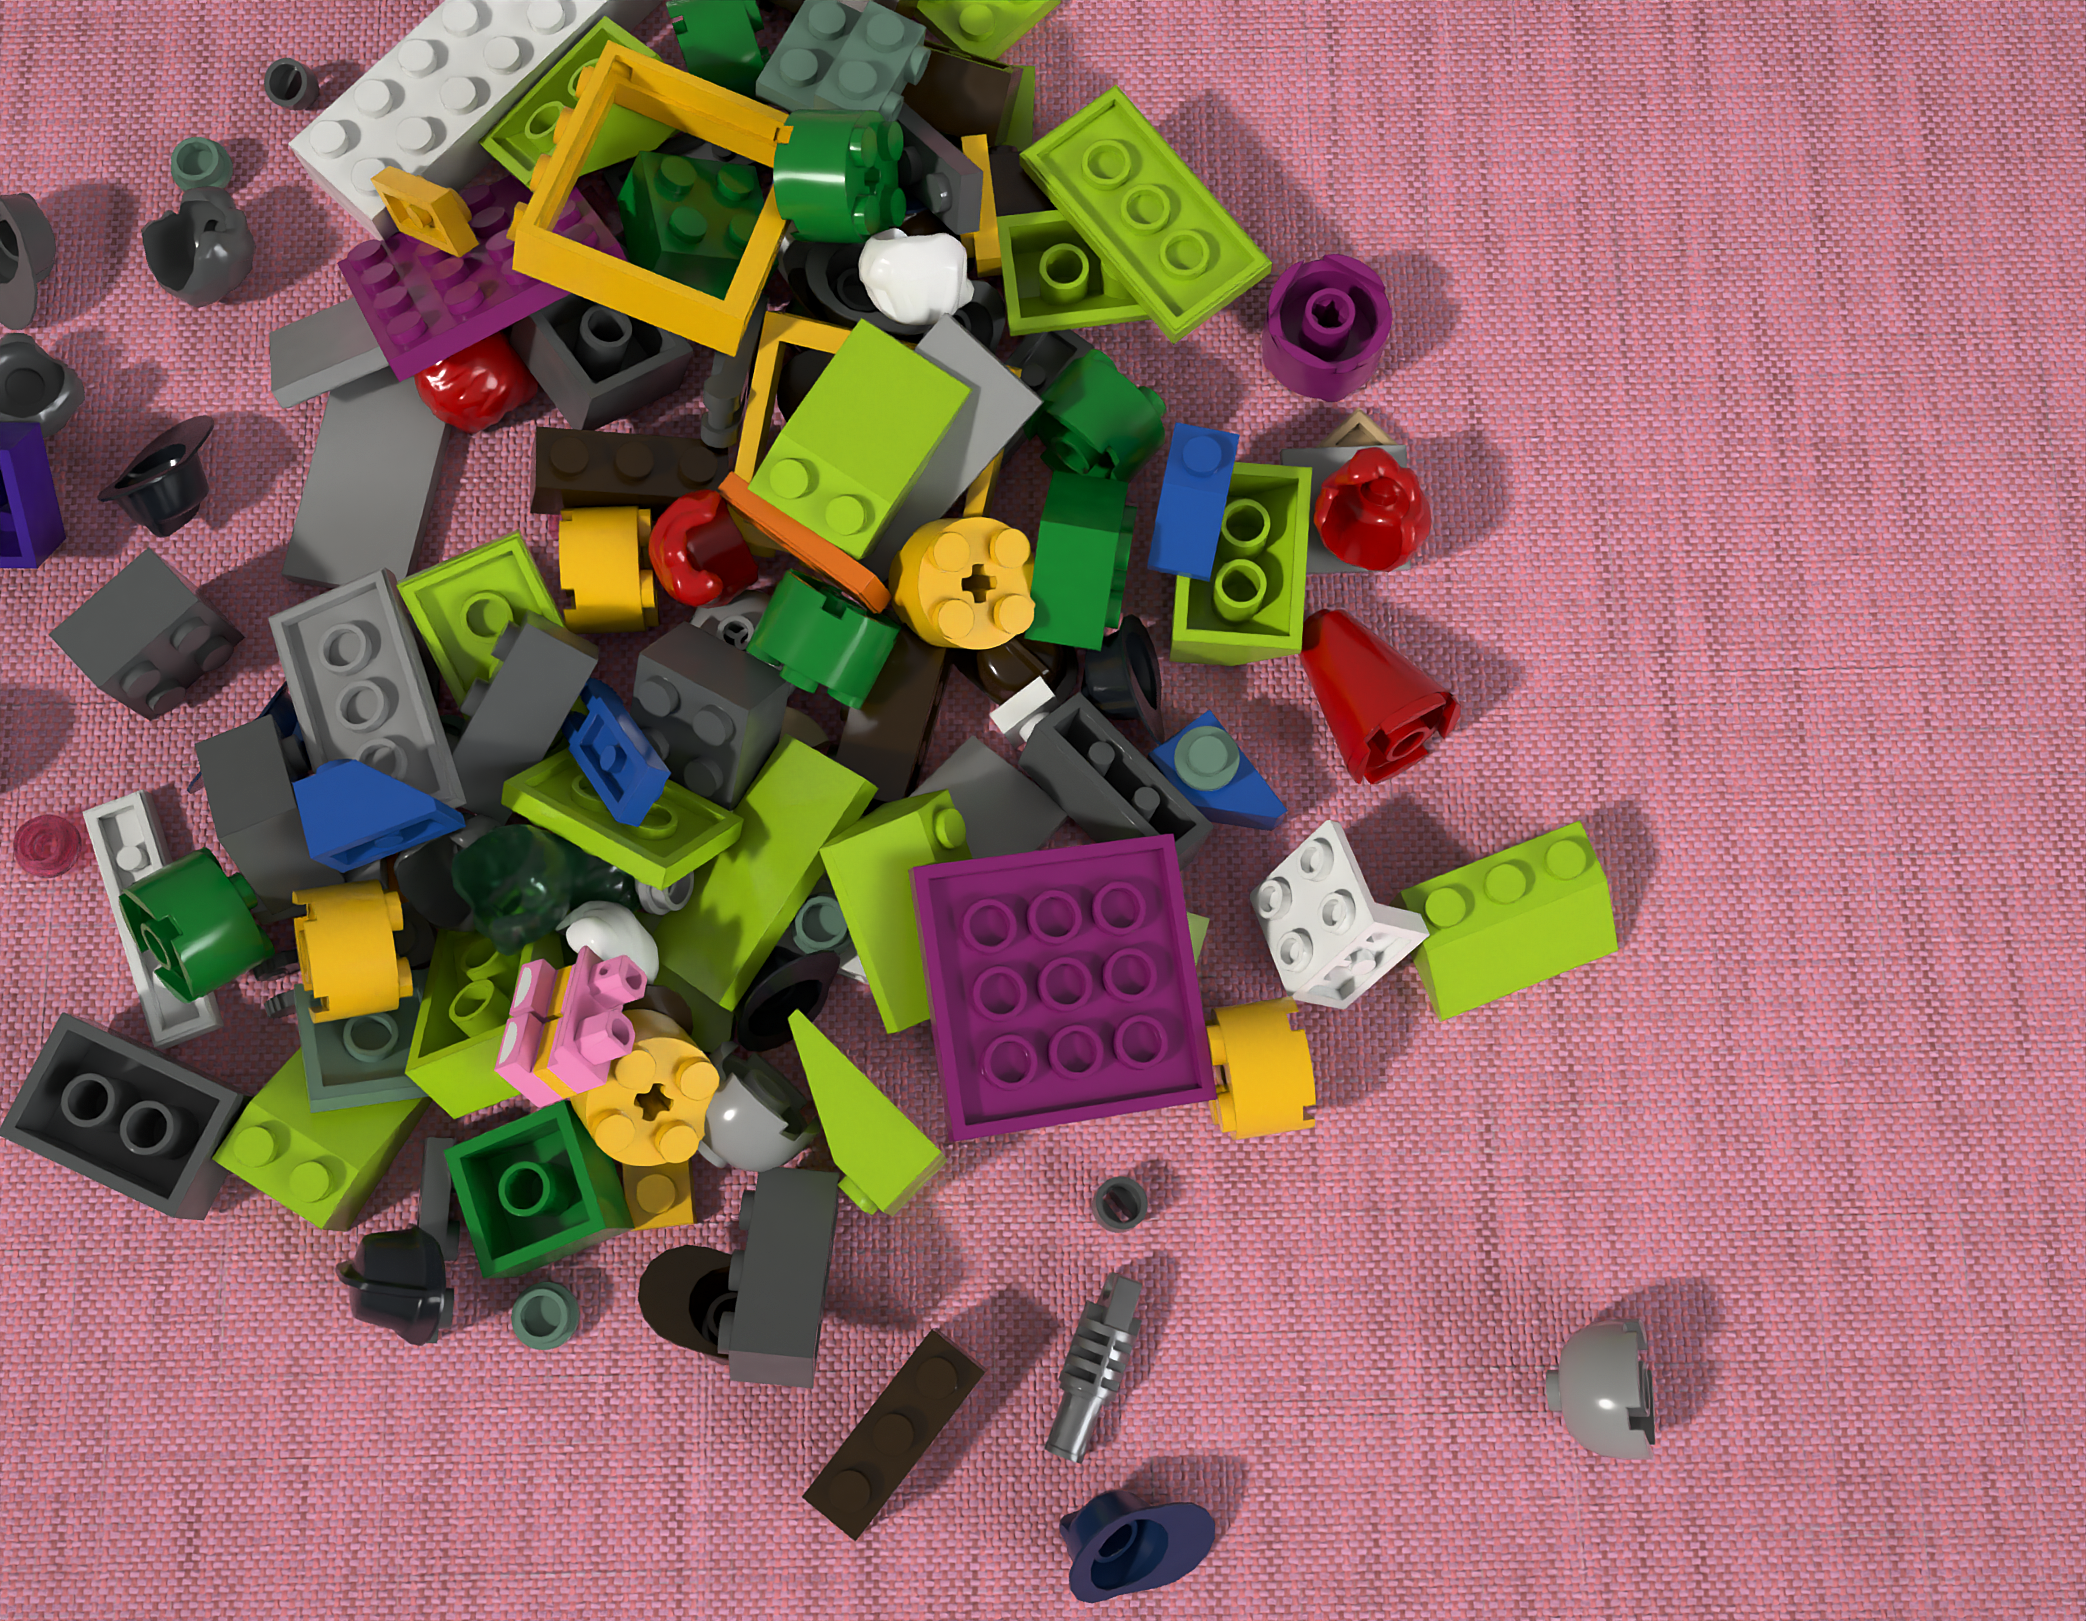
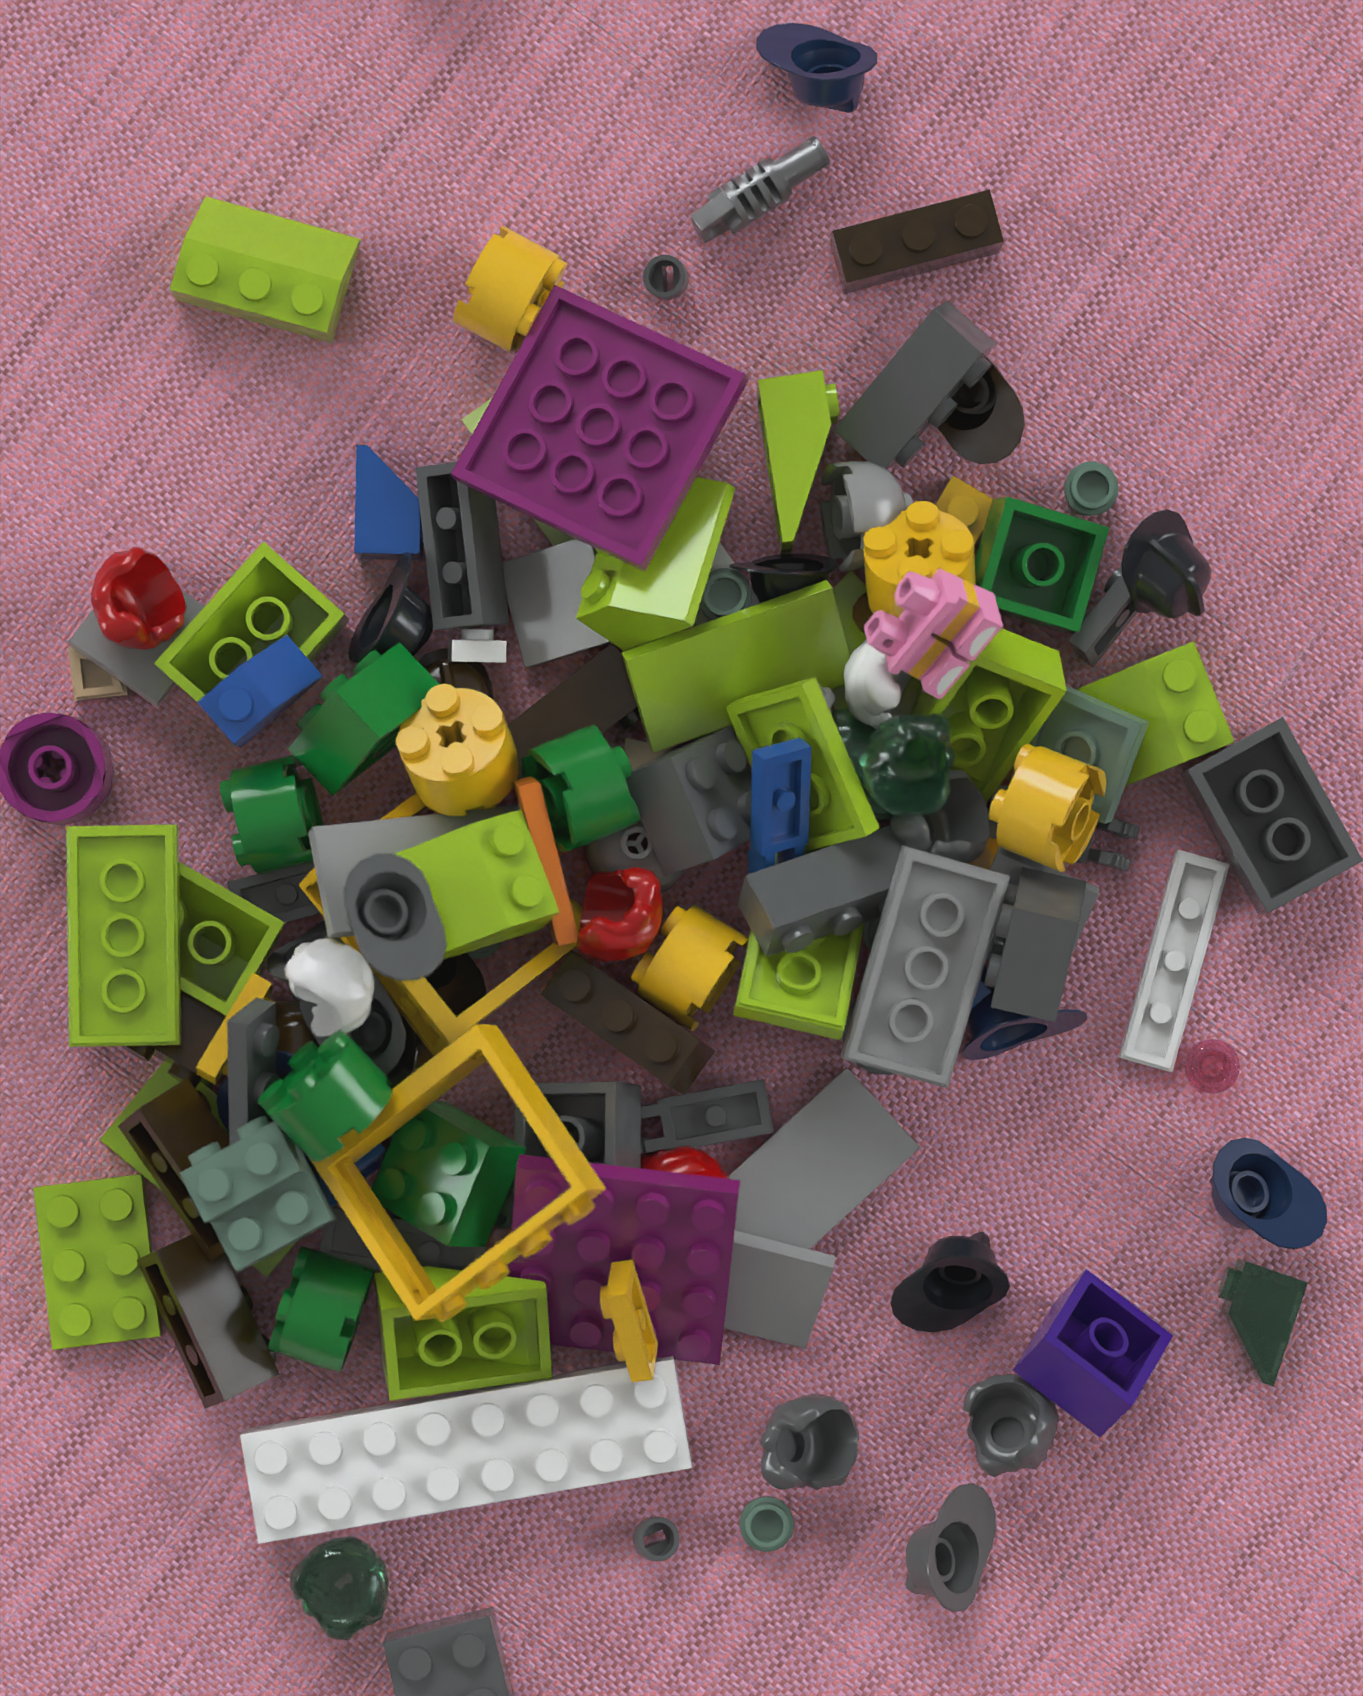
camera: 145 degrees left, 10 degrees up
(147, 636) = (1040, 1152): dark grey brick -> none
(196, 924) = (1141, 911): green brick -> none
(364, 815) = (969, 873): blue slope -> none
(495, 463) = (710, 1116): none -> dark grey hinge
(730, 384) = (512, 1021): dark grey plate -> none
(888, 342) = (394, 917): none -> dark grey piece
(1206, 758) = (385, 516): sand green plate -> none
(1325, 924) = (391, 353): white bracket -> none
(1372, 697) = (235, 486): red cone -> none

